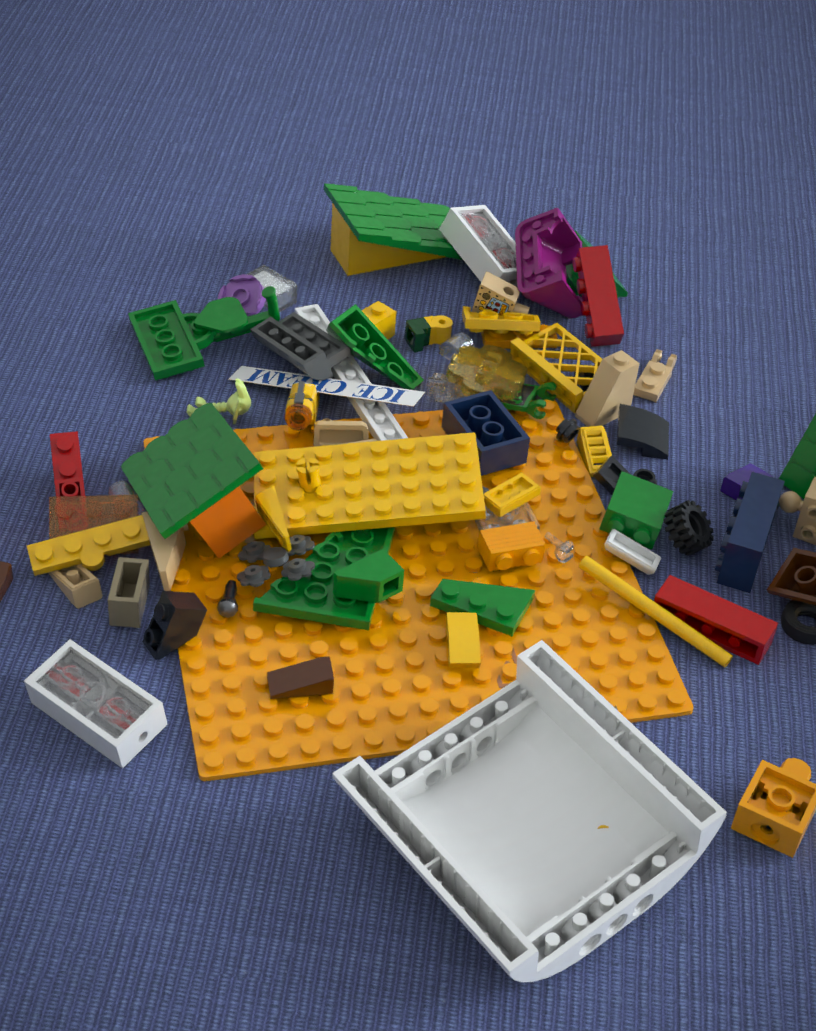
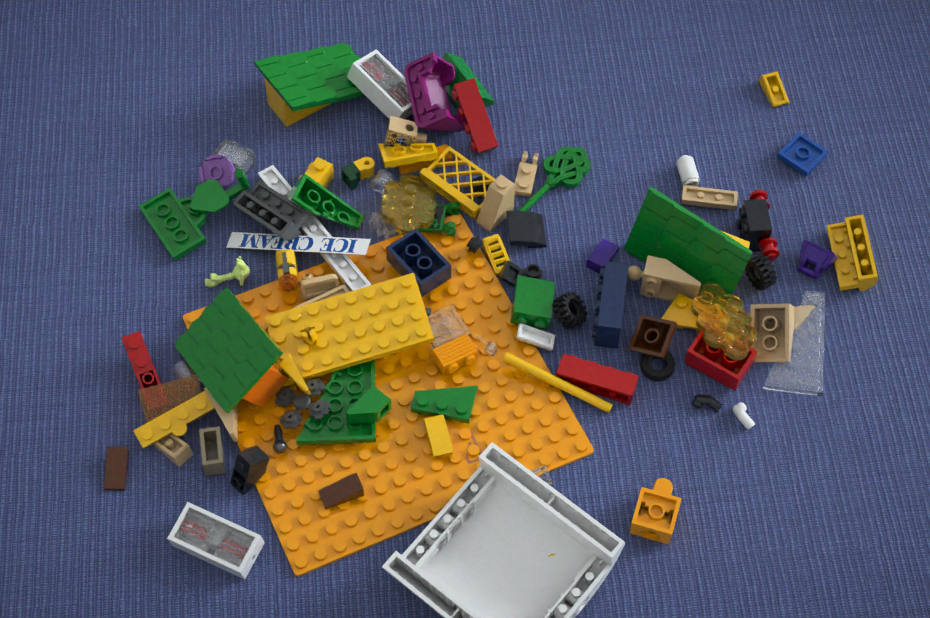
camera: 10 degrees left, 15 degrees up
(511, 494) = (447, 314): yellow plate -> none
(719, 381) = (567, 175): none -> green piece

